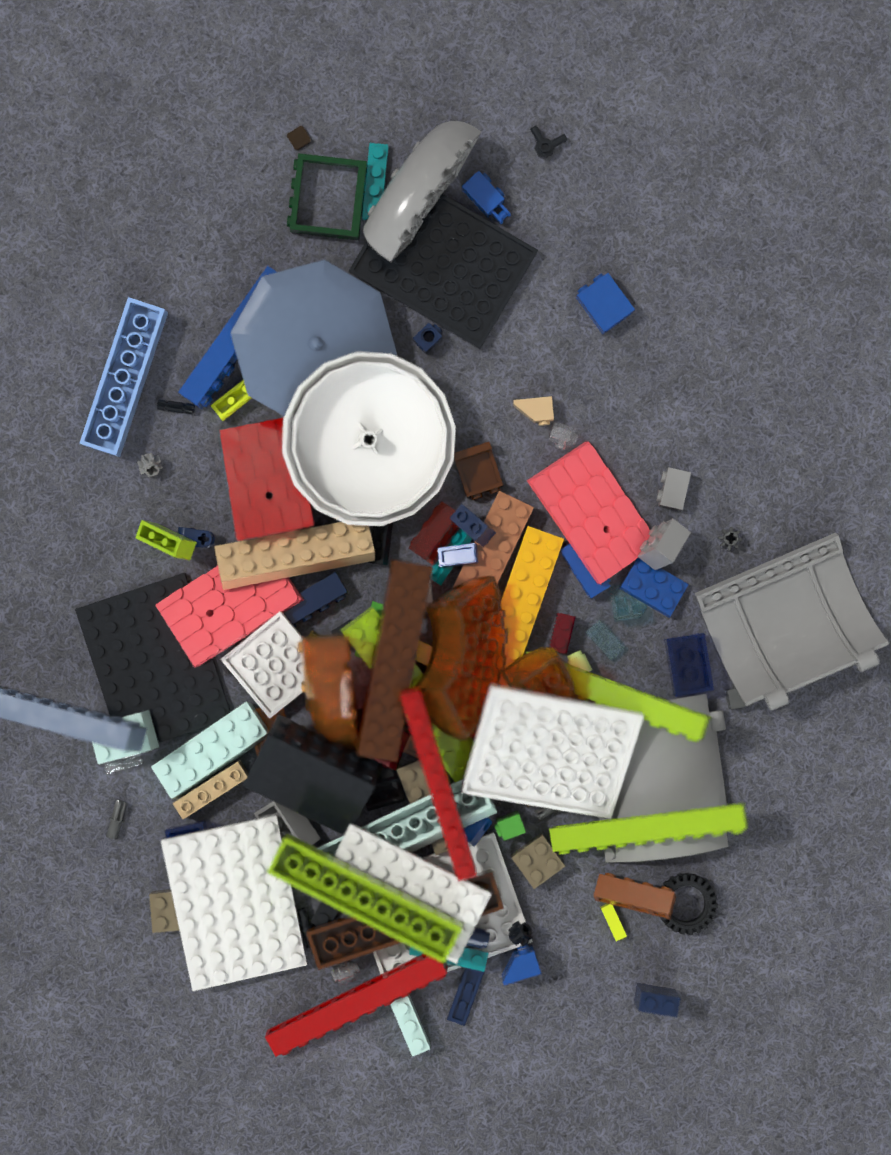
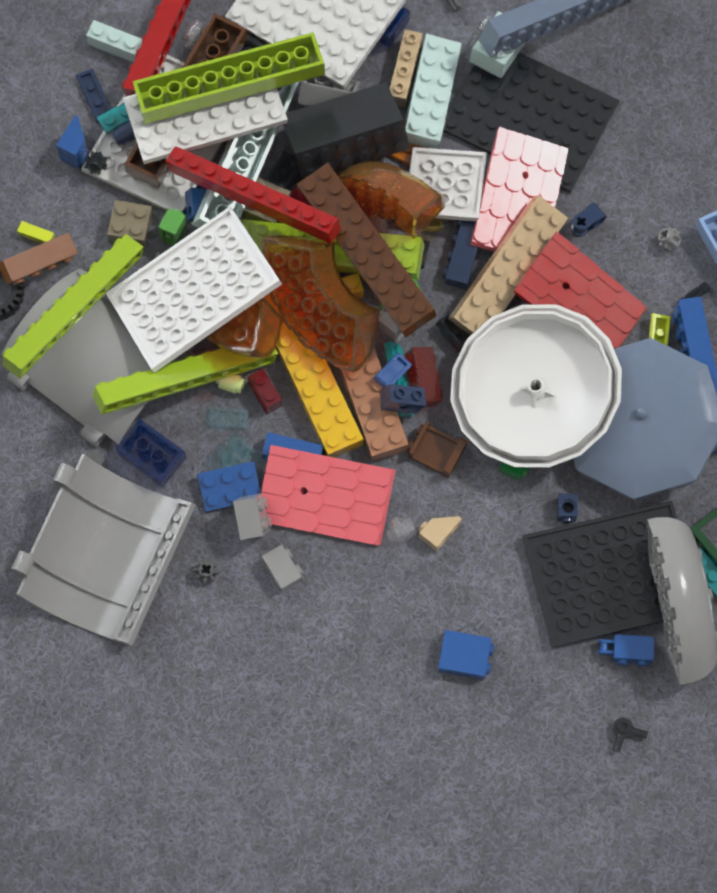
camera: 135 degrees right, 15 degrees down
(165, 540) = (605, 195): lime brick -> none

